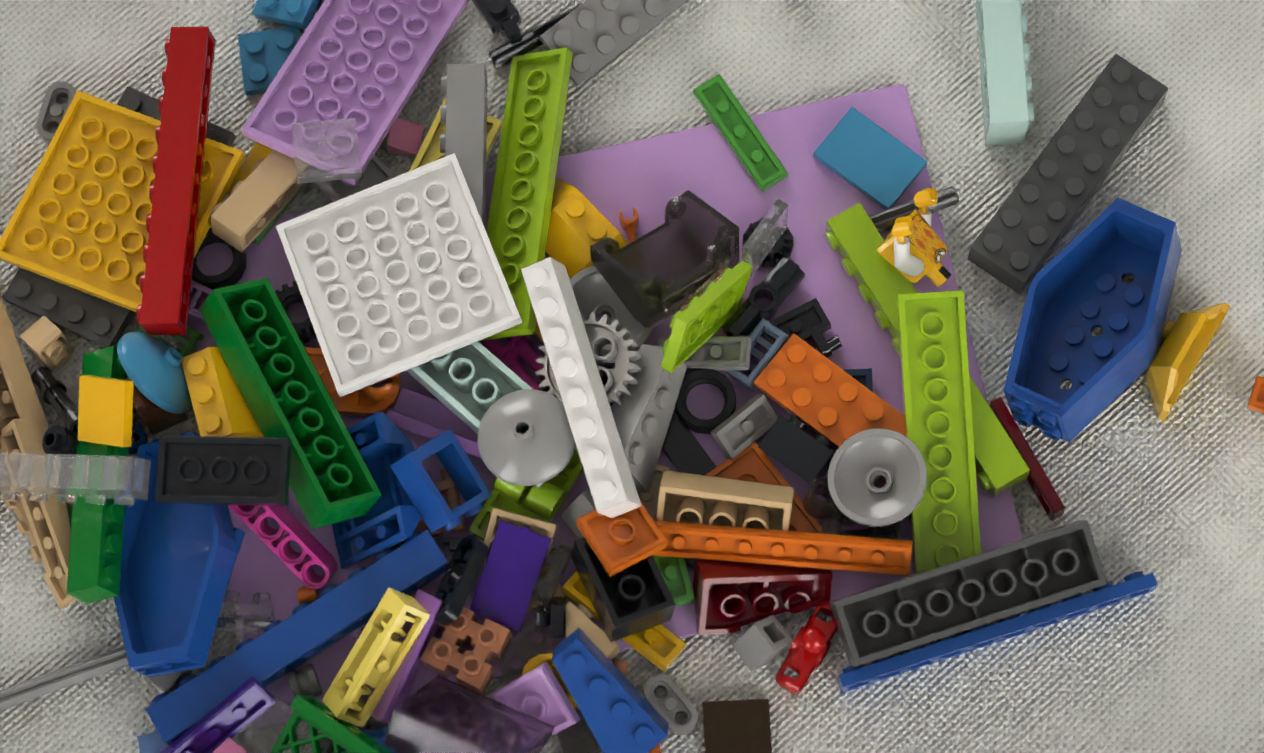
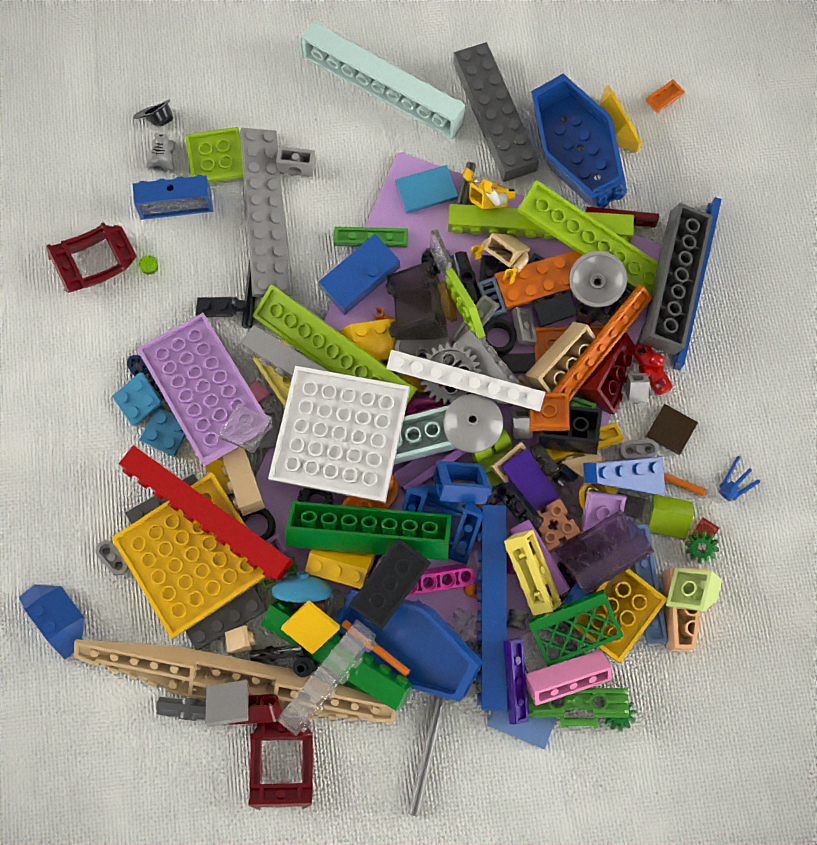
camera: 65 degrees left, 0 degrees up
(135, 531) = (384, 654): none -> orange bar
(664, 152) = (359, 274): none -> blue brick
(840, 327) = (507, 250): none -> tan torso

